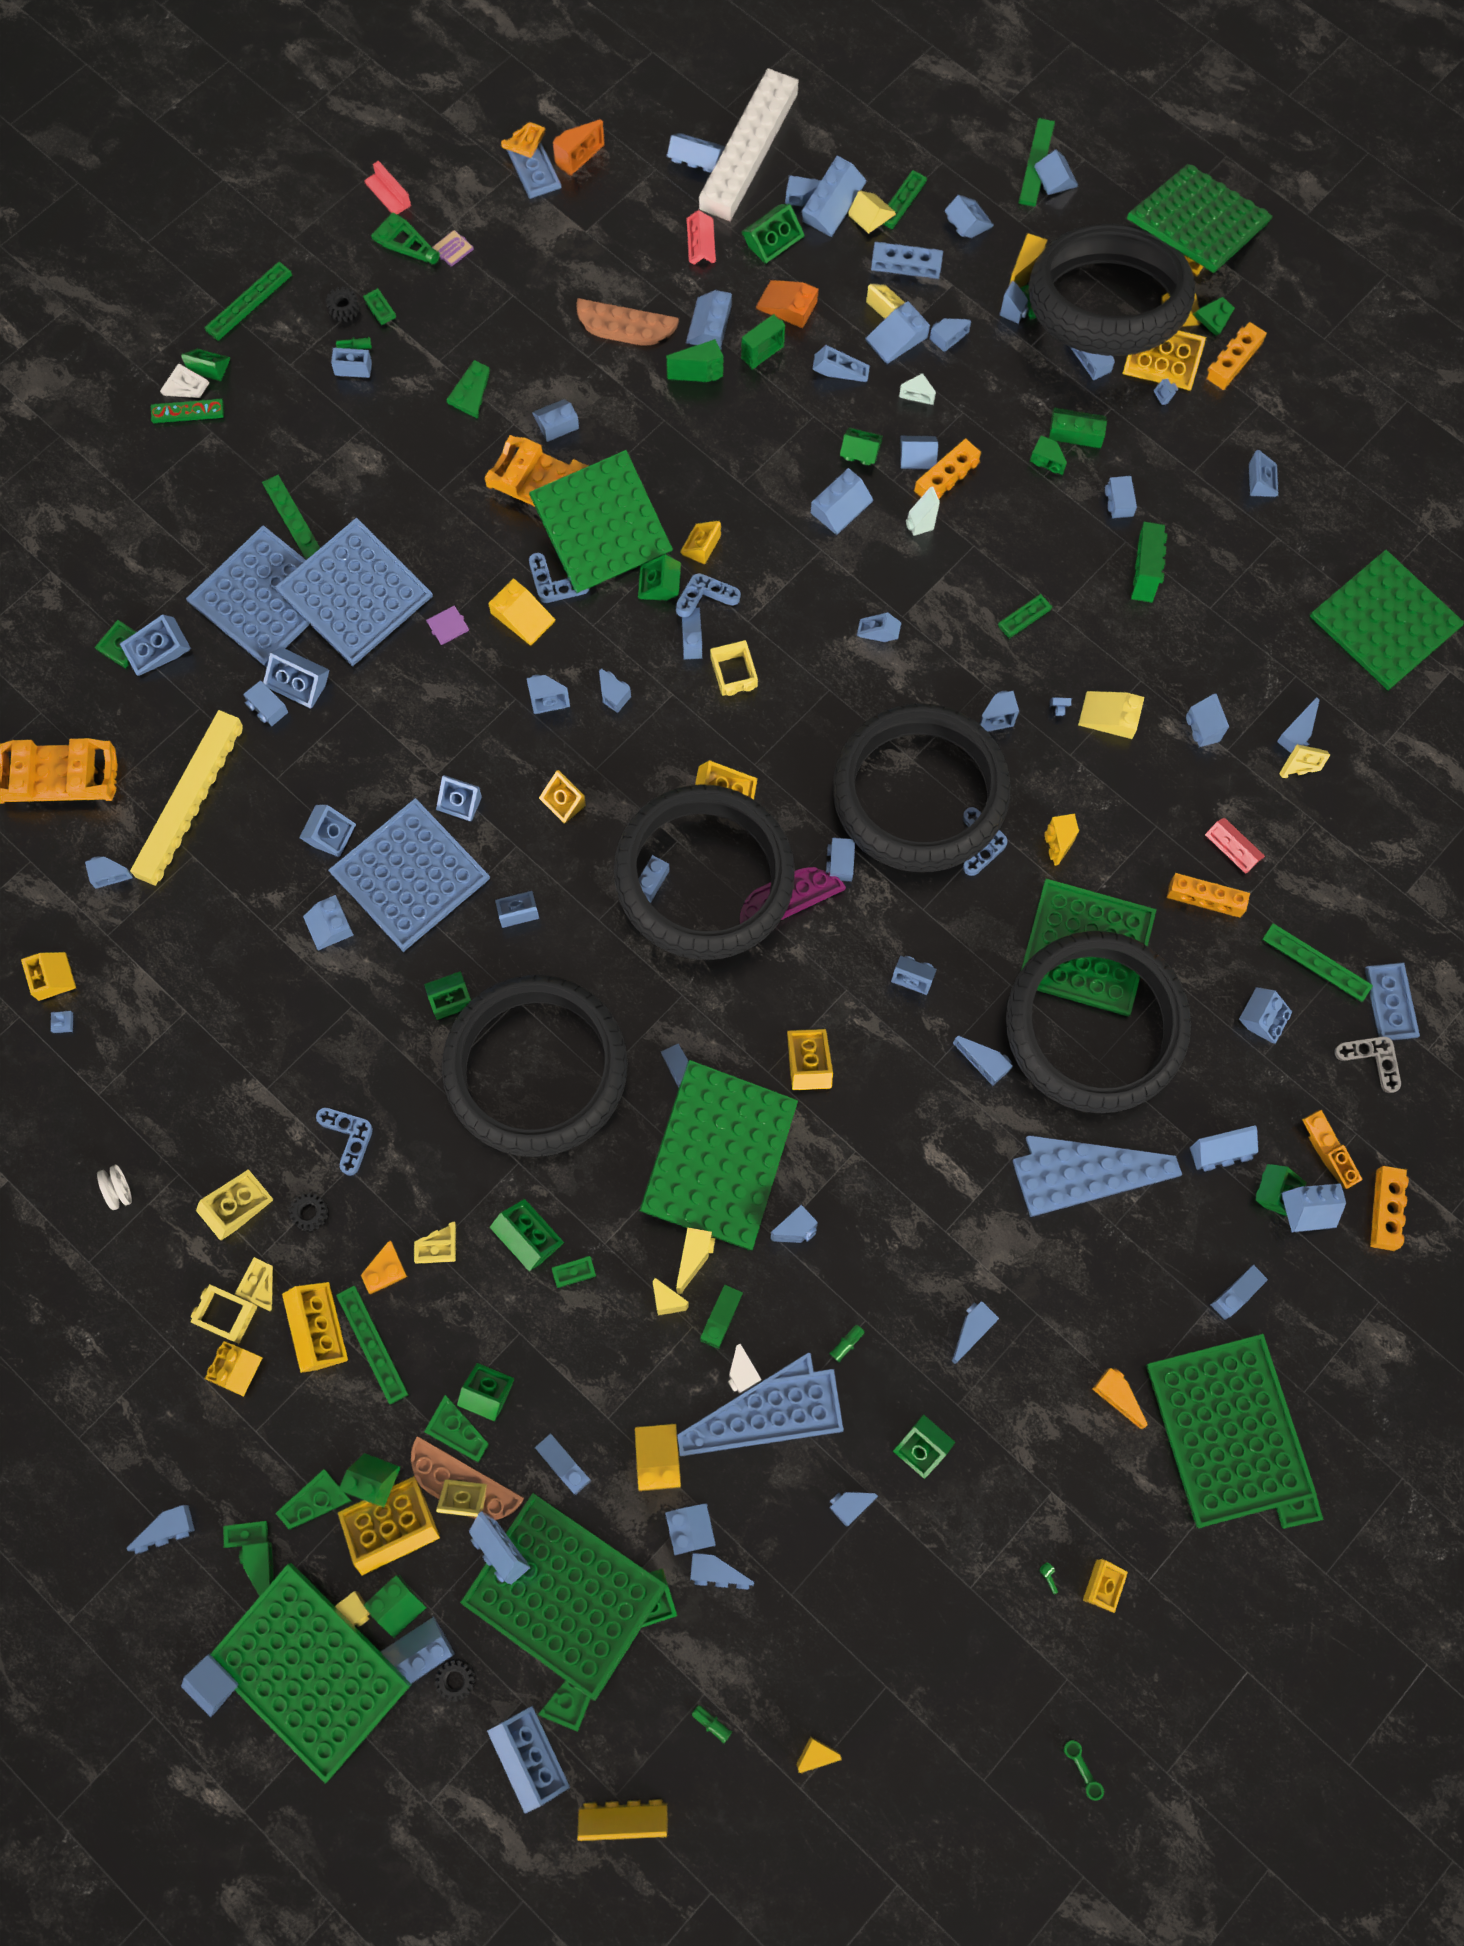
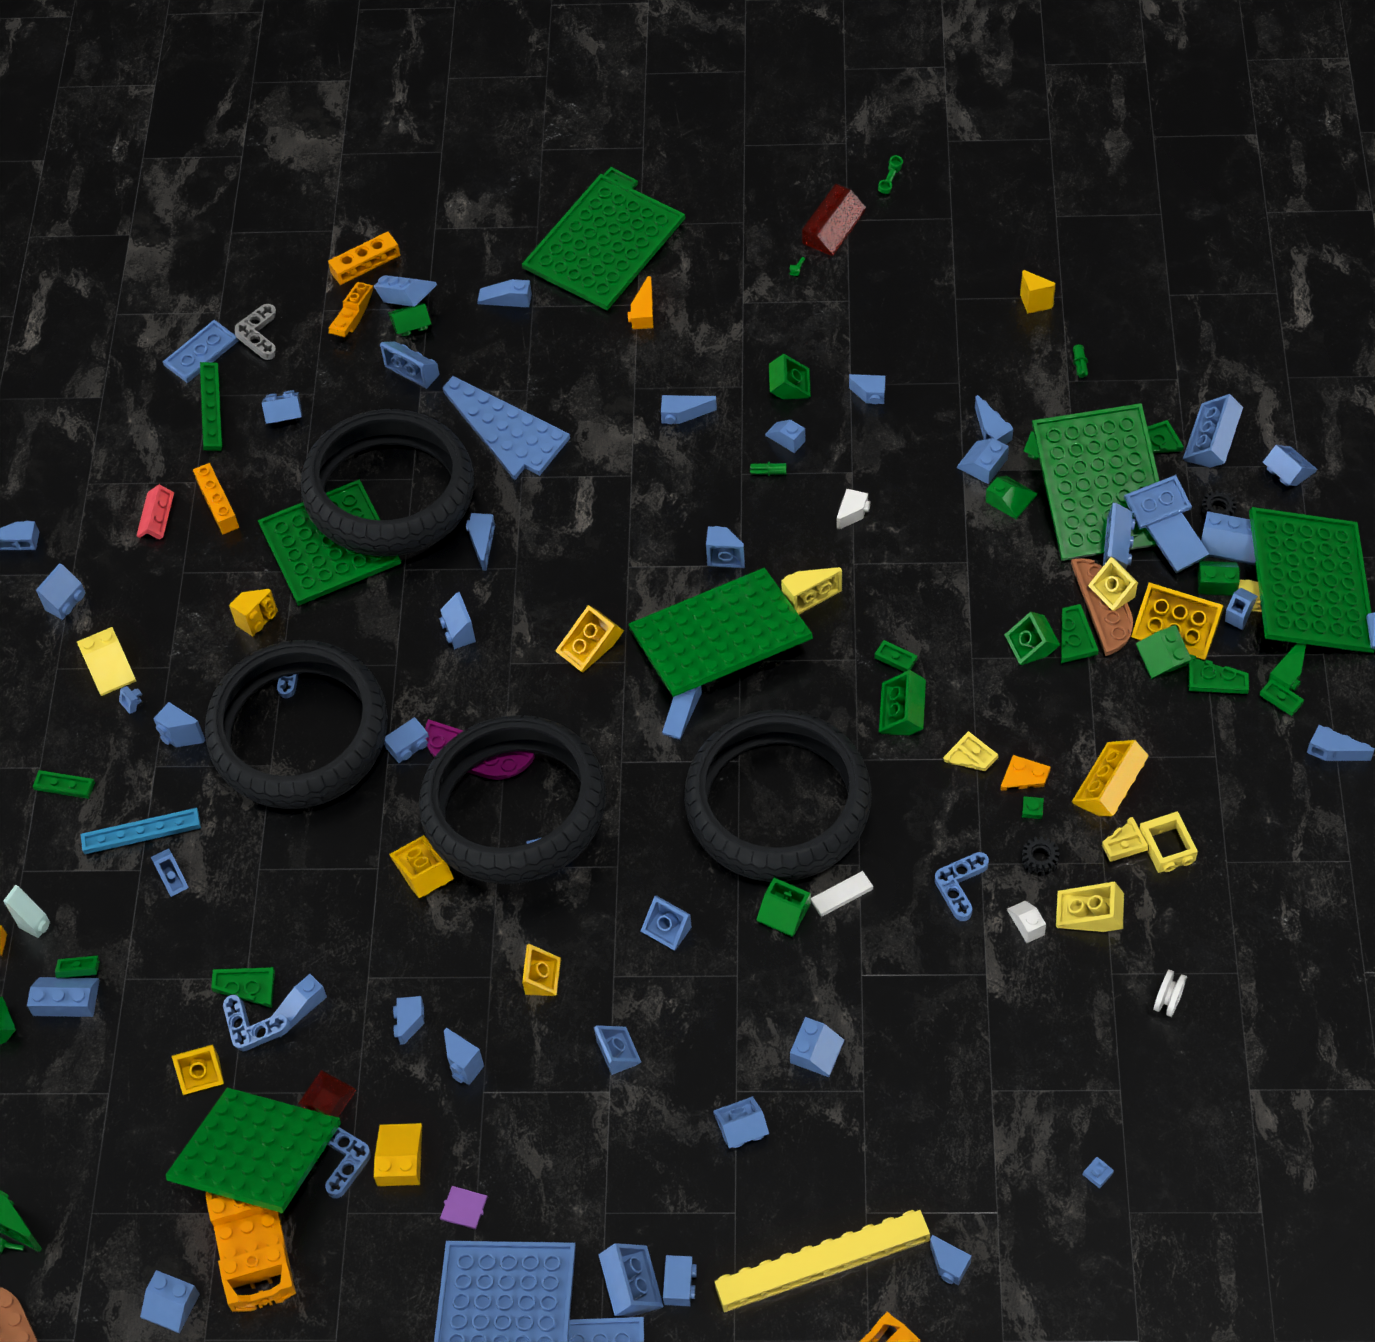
camera: 125 degrees left, 15 degrees down
(48, 974) = (1075, 1214): yellow slope -> none
(233, 1368) = (1195, 802): yellow slope -> none
(272, 1152) = (1028, 921): none -> white slope
(341, 1582) = (1240, 608): none -> medium blue slope
(352, 1248) = (1032, 807): none -> green plate
(372, 1345) = (1080, 734): green plate -> none
(409, 874) = (716, 1027): medium blue plate -> none
(422, 1048) = (841, 893): none -> white tile
(432, 1790) = (1288, 465): none -> medium blue slope
(463, 1605) = (1178, 542): none -> medium blue tile
(495, 1617) = (1157, 502): none -> medium blue tile
(562, 1464) = (1025, 556): medium blue slope -> none
(606, 601) = (327, 1095): none -> clear red slope
(622, 1821) = (1187, 355): yellow slope -> none
(633, 1517) = (1009, 496): none -> green slope
(657, 1457) = (961, 509): yellow slope -> none
(659, 579) = (268, 1071): green slope -> none
(667, 1300) = (856, 580): light yellow slope -> none
(721, 1316) = (831, 547): green slope -> none
(729, 652) = (281, 949): light yellow window -> none
(739, 615) = (247, 983): none -> green wing
(781, 1408) = (841, 464): medium blue wing -> none
(856, 523) = (77, 967): none -> green plate
(869, 1389) = (787, 434): none -> medium blue slope
(933, 635) = (140, 831): none -> dark azure plate
(1073, 1660) = (833, 220): none -> clear red slope
(1105, 1585) = (772, 238): yellow slope -> none
(1304, 760) = (42, 516): light yellow wing -> none

